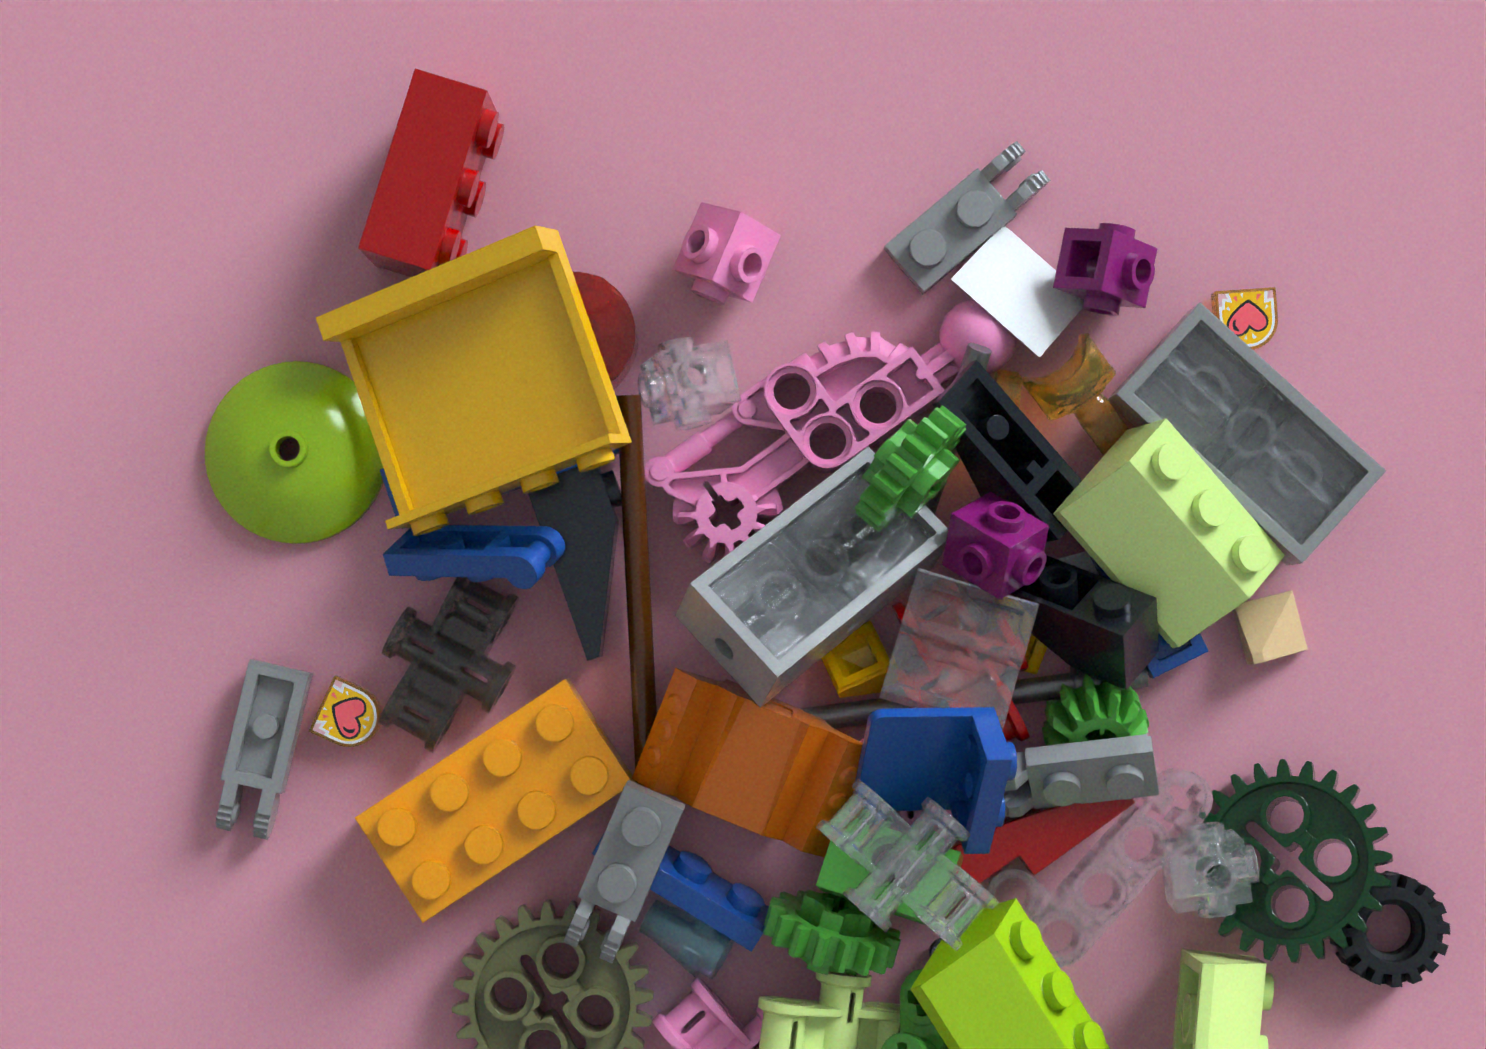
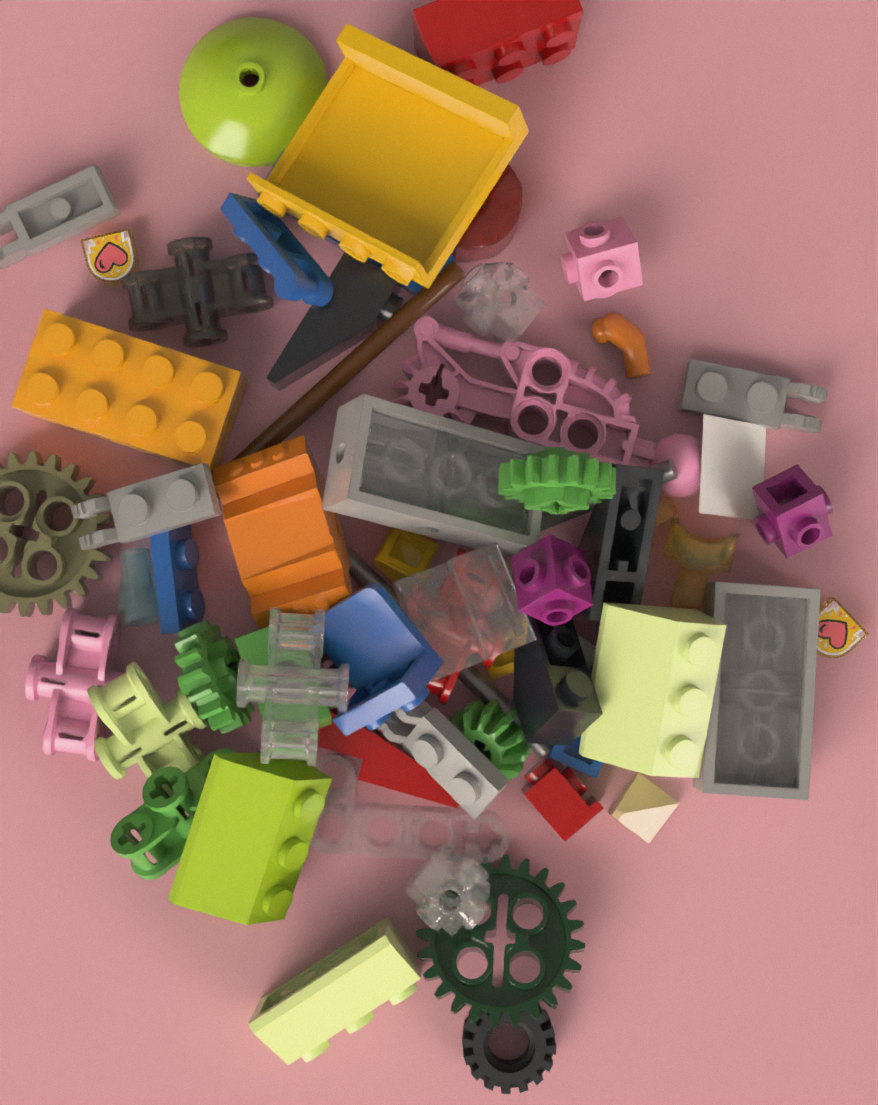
camera: 50 degrees right, 0 degrees up
(817, 288) = (628, 338): none -> orange arm
(1200, 700) = (558, 798): none -> red brick

